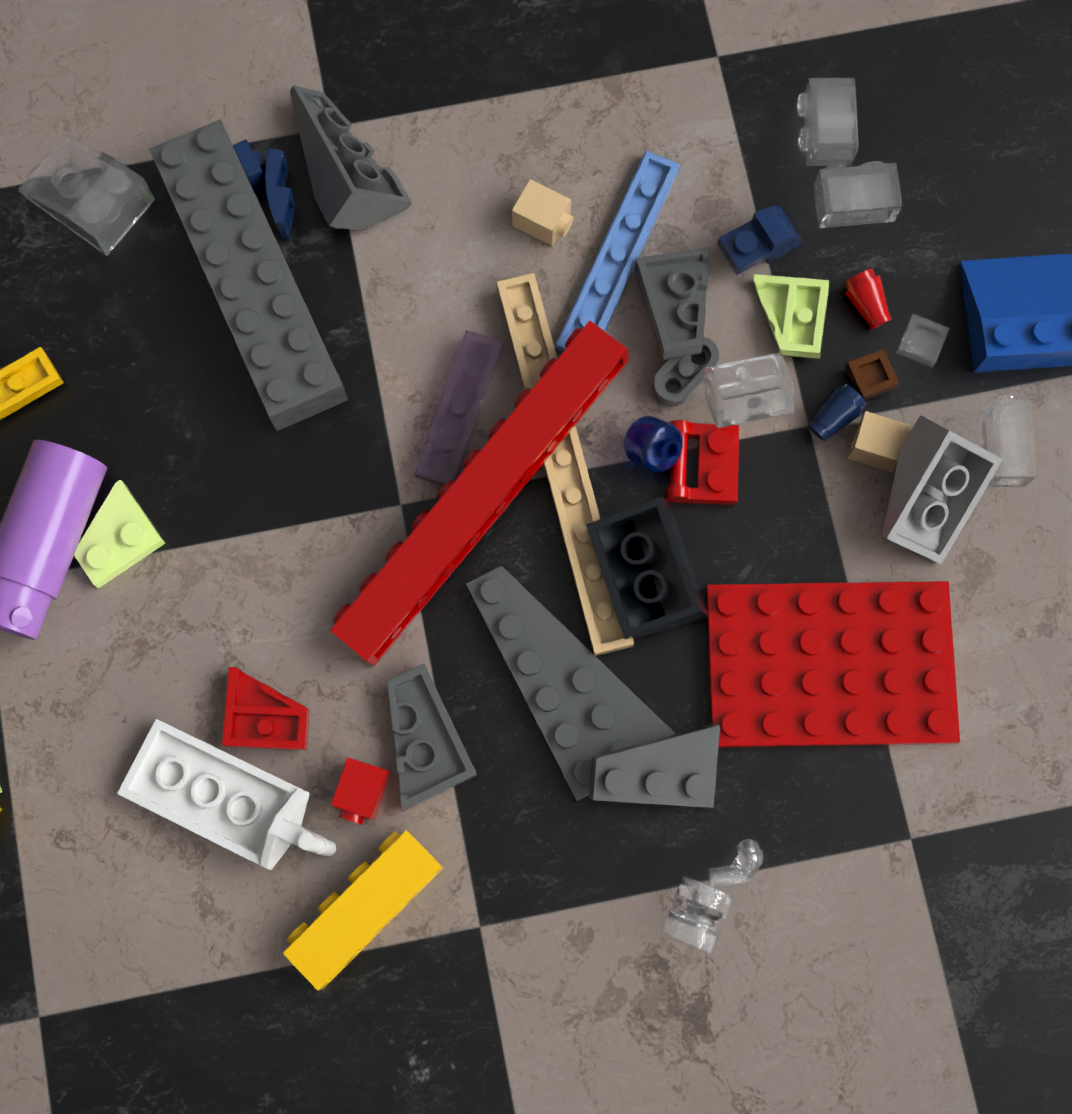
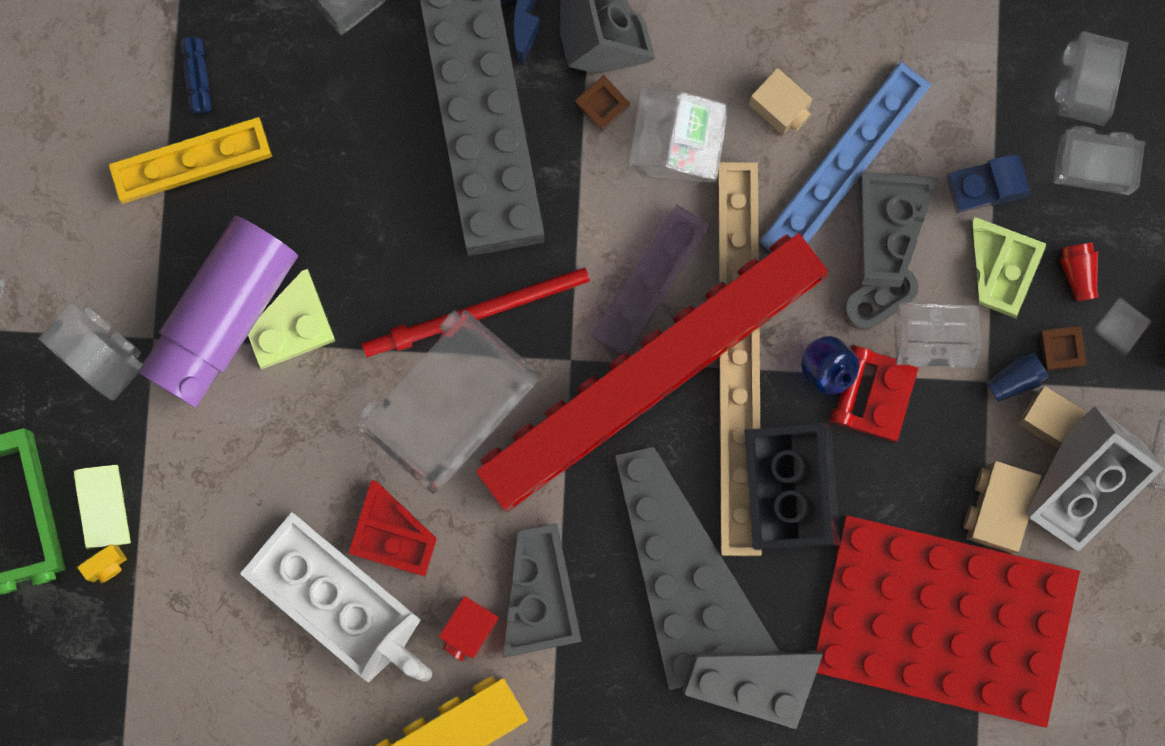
camera: 10 degrees right, 5 degrees up
(230, 522) = (403, 337): none -> red bar
(284, 569) = (448, 401): none -> clear windscreen
(372, 255) = (602, 103): none -> reddish brown plate
(450, 265) = (678, 136): none -> clear slope
(856, 538) = (1001, 507): none -> tan brick

